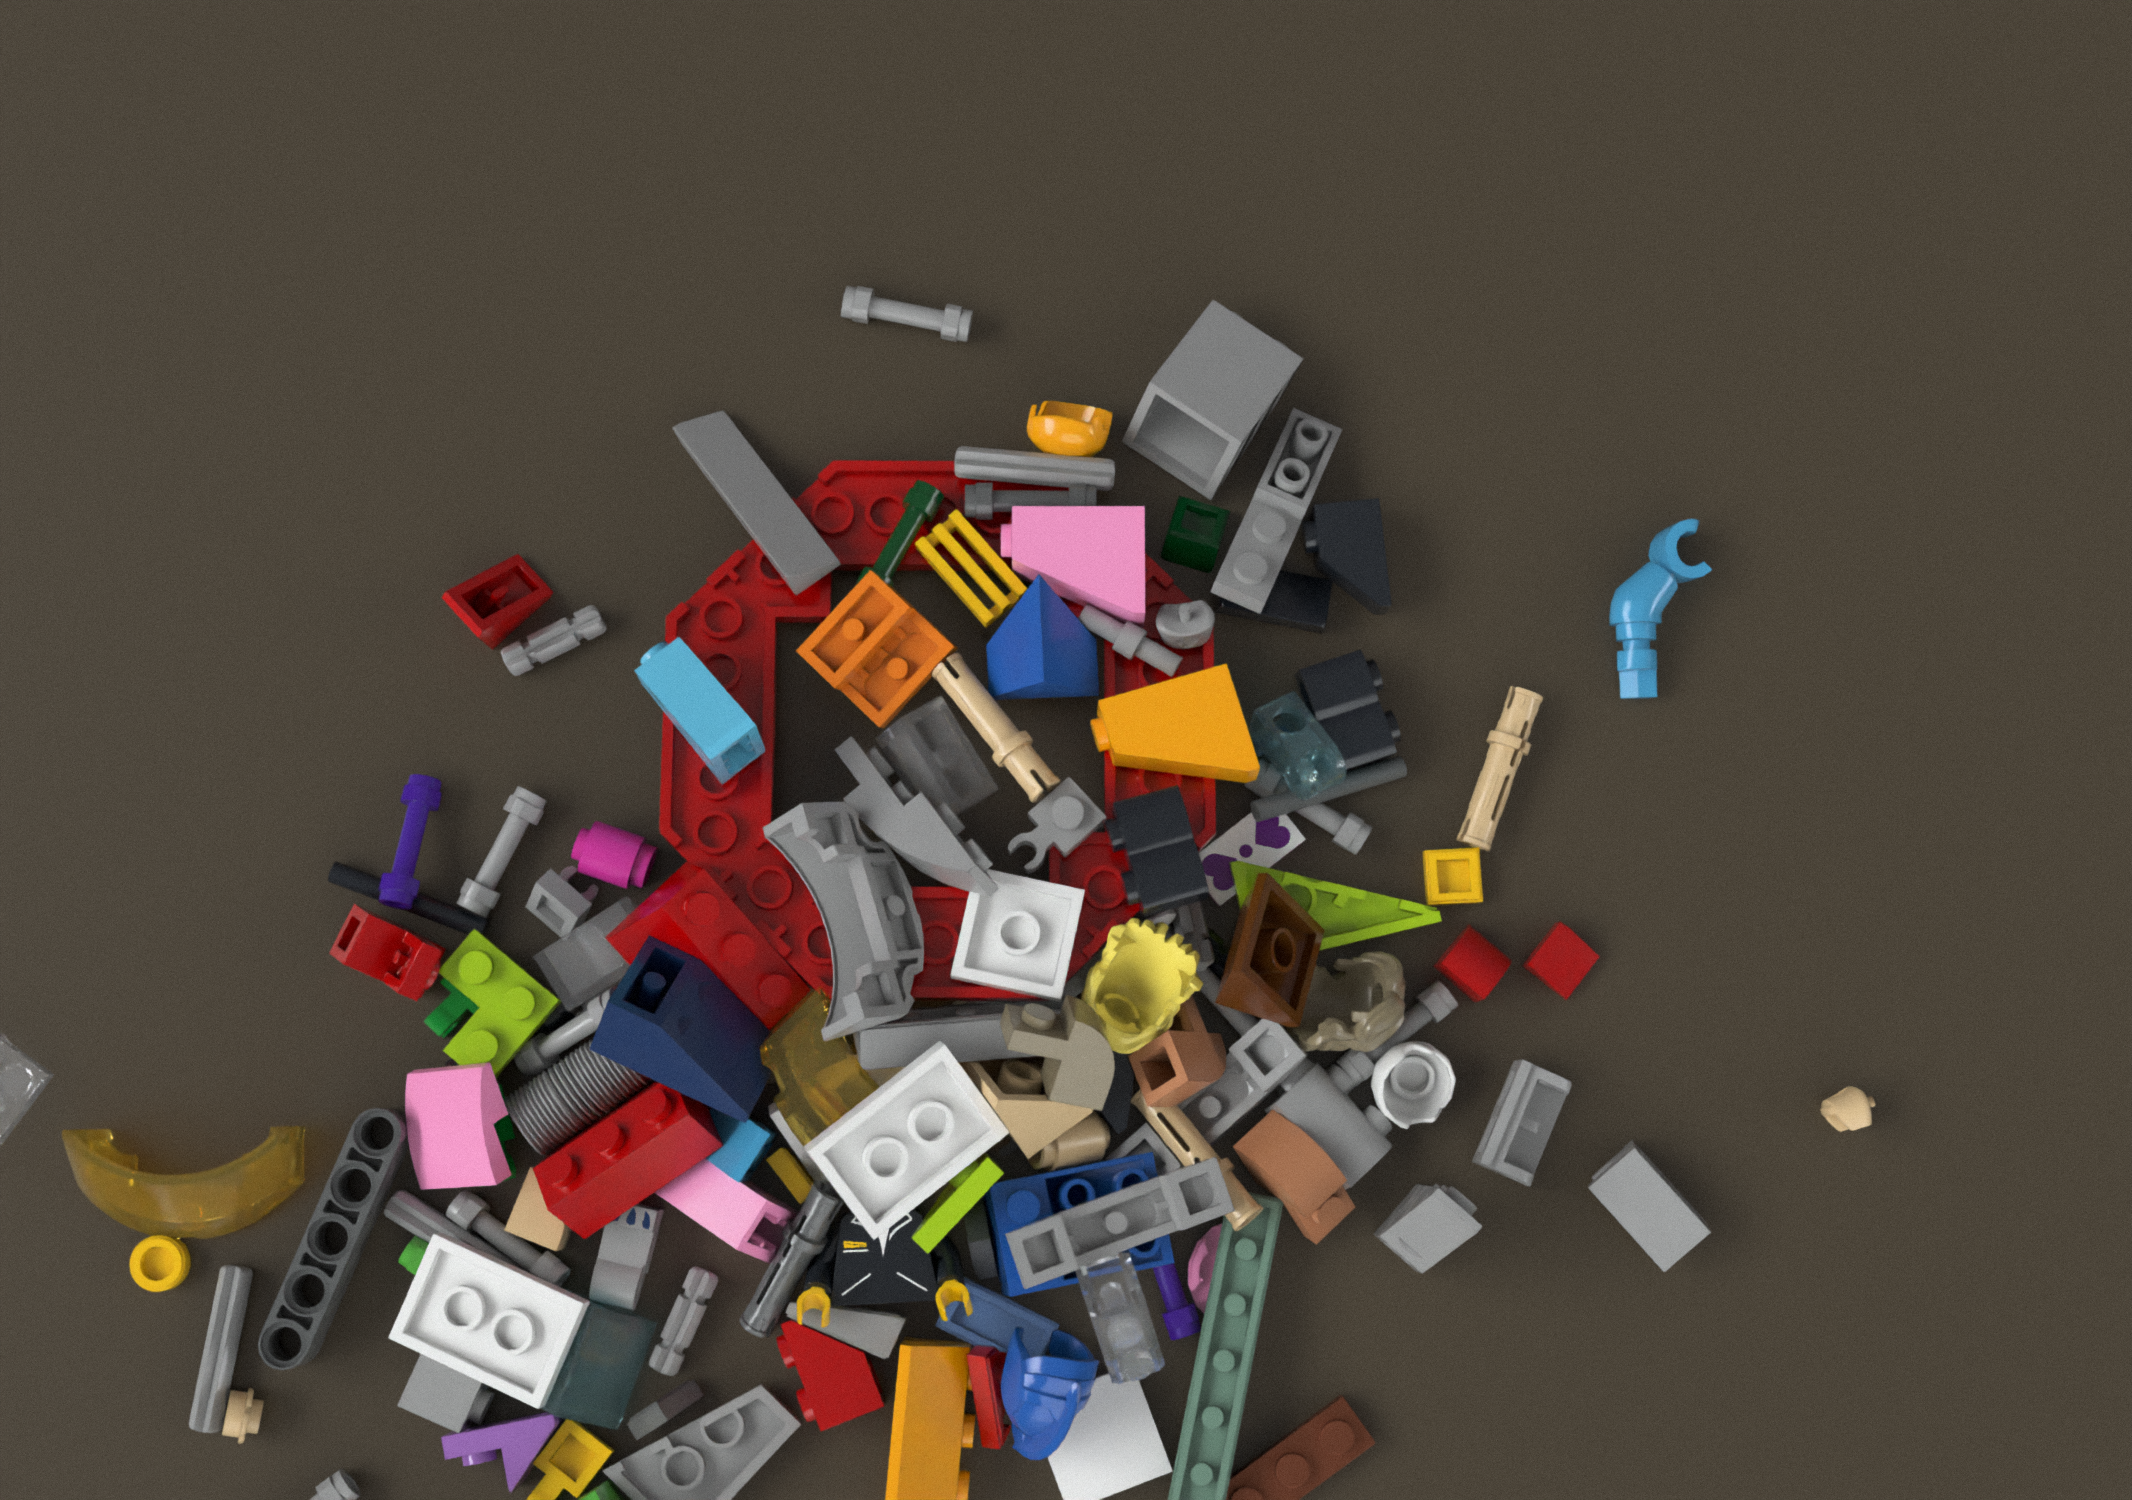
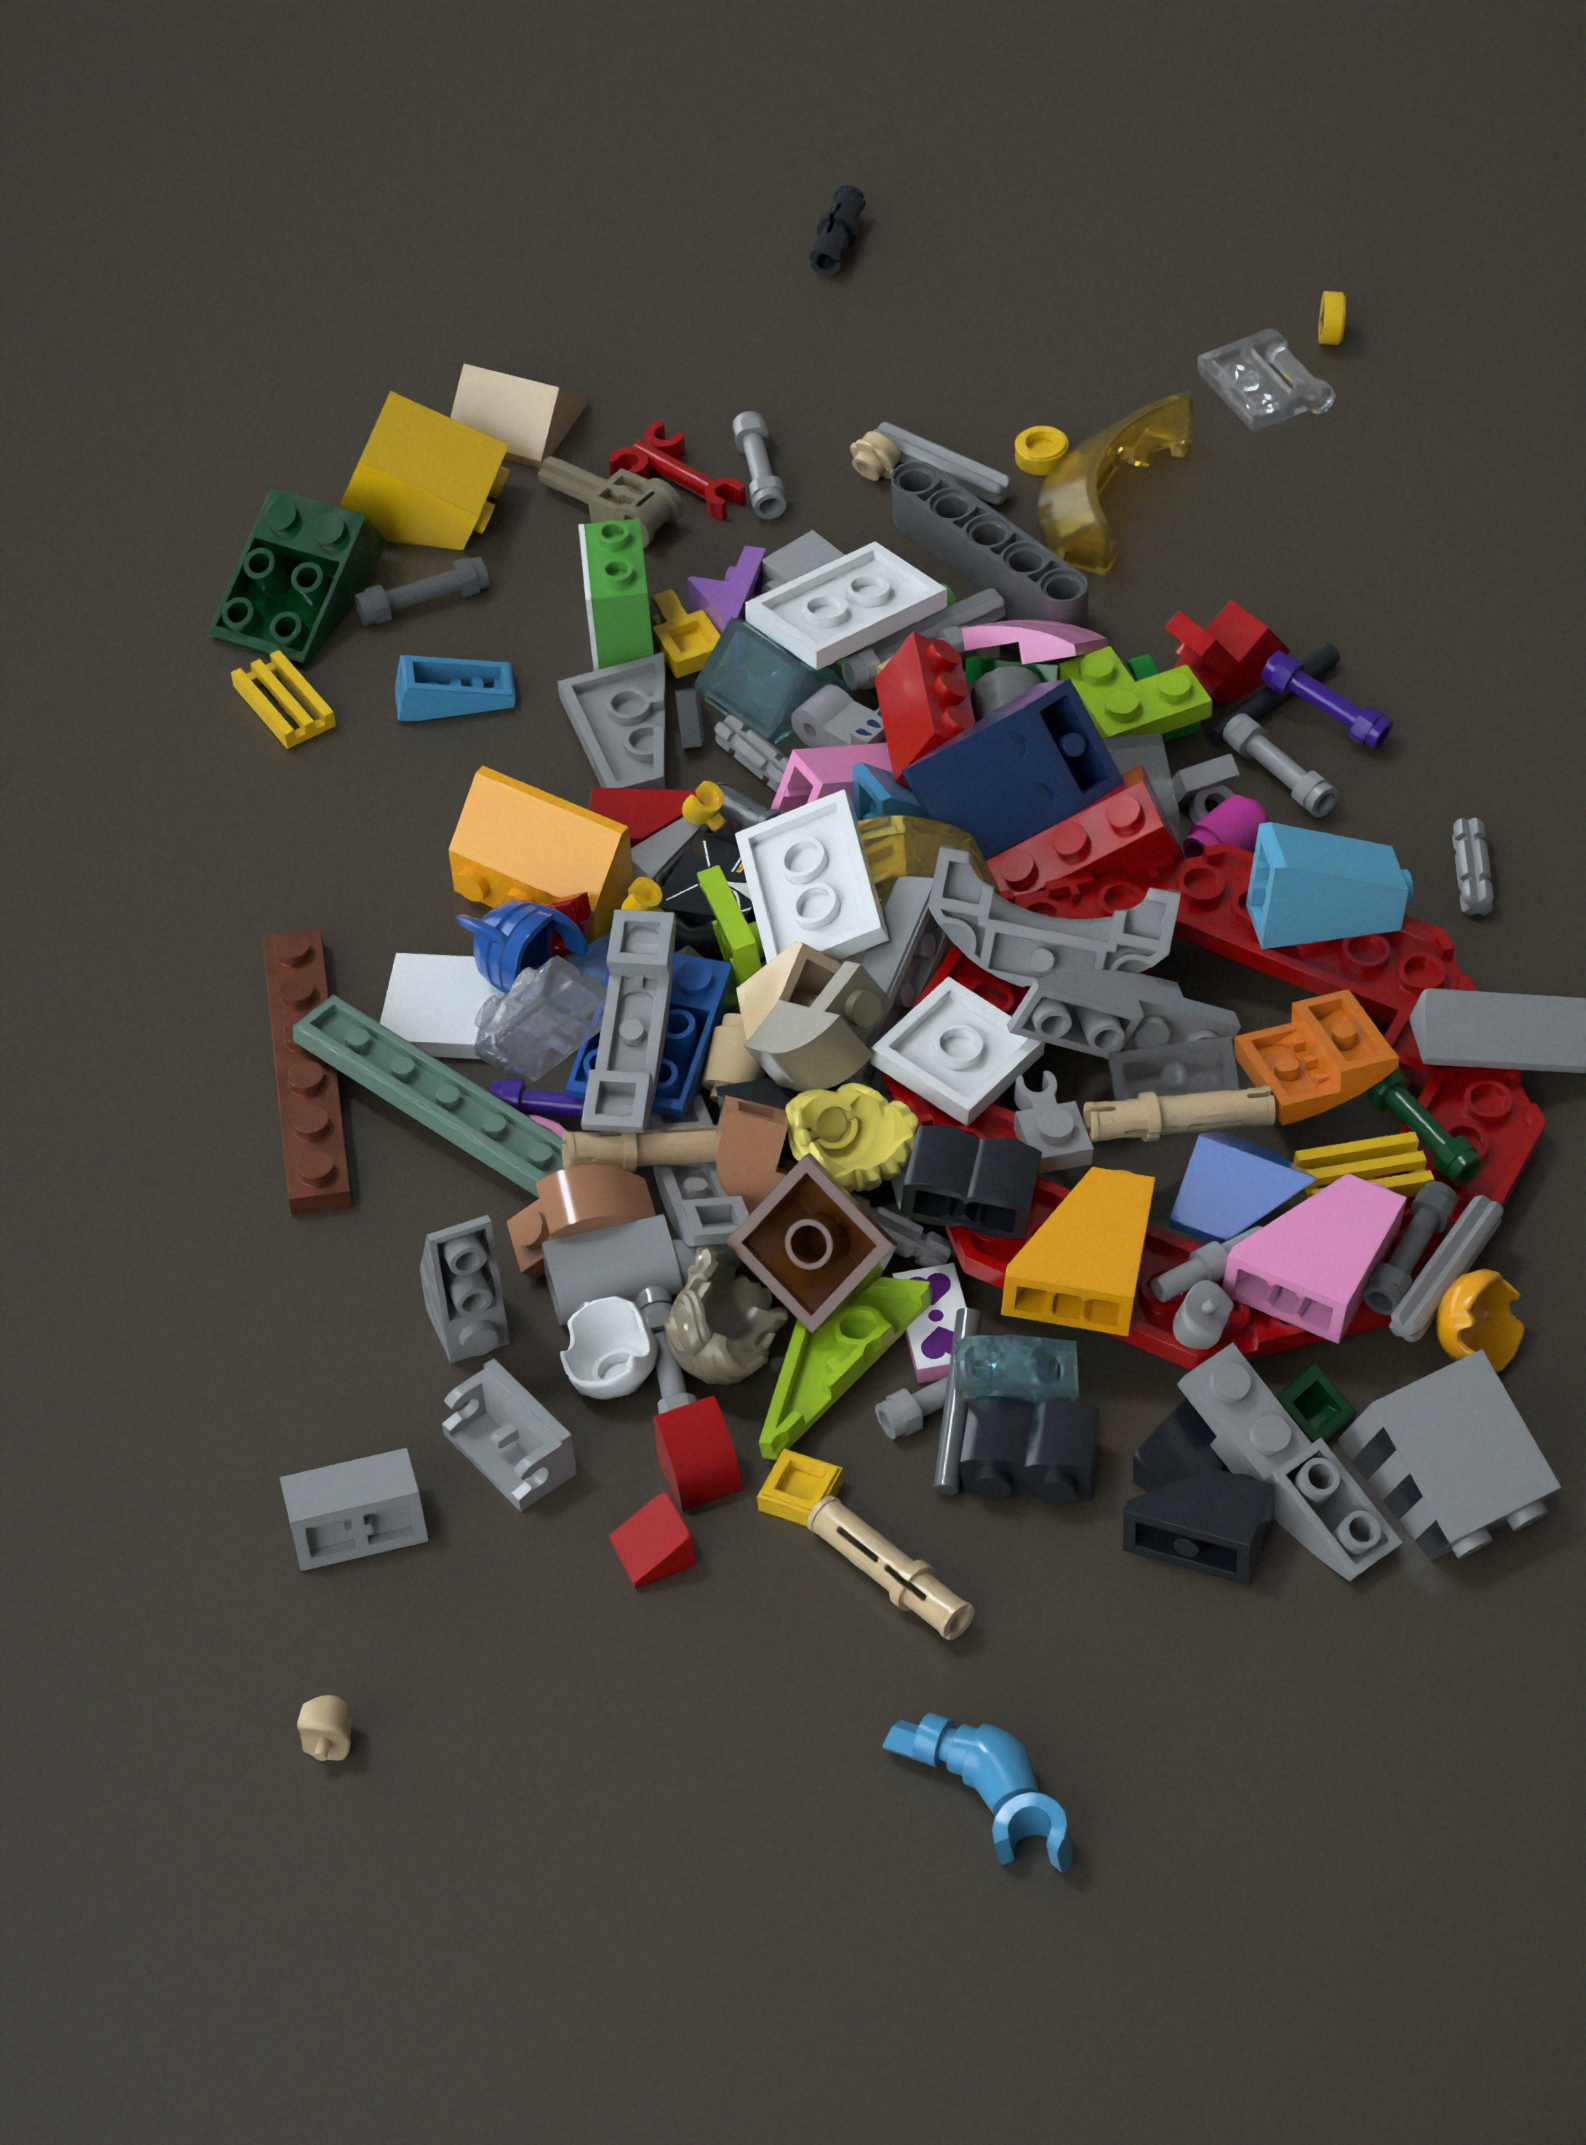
camera: 125 degrees right, 35 degrees down
(498, 599) = (1532, 823): red slope -> none

